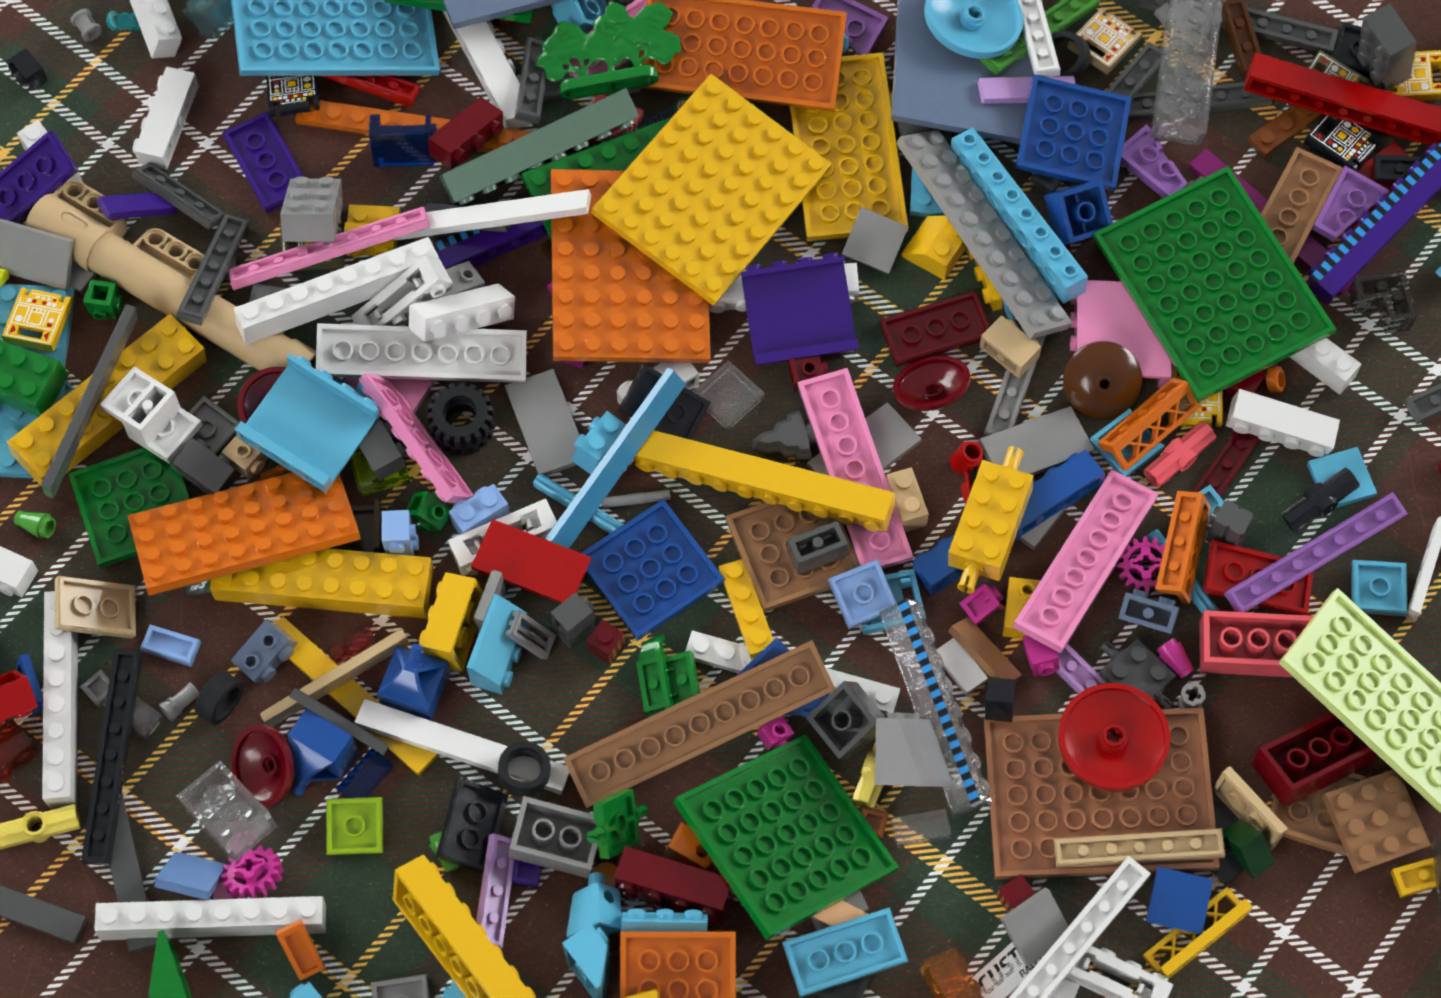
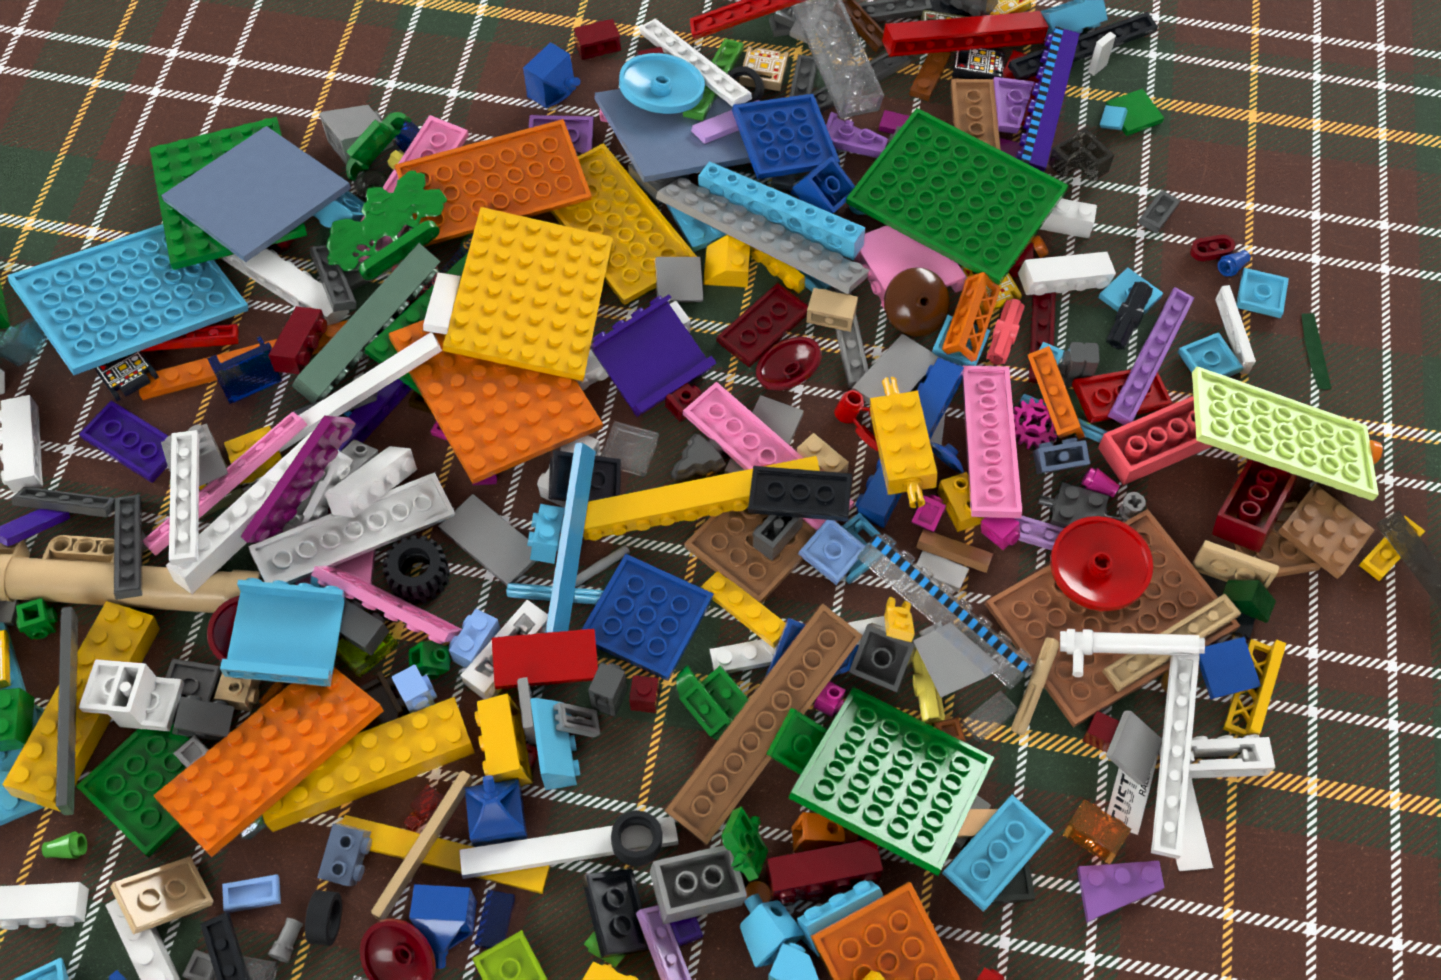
camera: 30 degrees left, 5 degrees down
(178, 491) = (190, 751): none -> light grey tile
(279, 250) = (184, 498): none -> white plate
(339, 721) = (448, 880): dark grey tile -> none
(391, 281) = (299, 478): none -> magenta plate
(615, 162) = (441, 303): none -> white tile
(717, 754) = (796, 741): none -> green tile
(854, 522) = (800, 493): none -> black tile
(878, 693) = (899, 621): none -> yellow hinge
(978, 821) = (1035, 686): none -> tan axle
(1000, 699) = (992, 579): black brick -> none
(1032, 554) = (948, 456): none -> blue dish
(1053, 806) = (1092, 642): none -> white cylinder

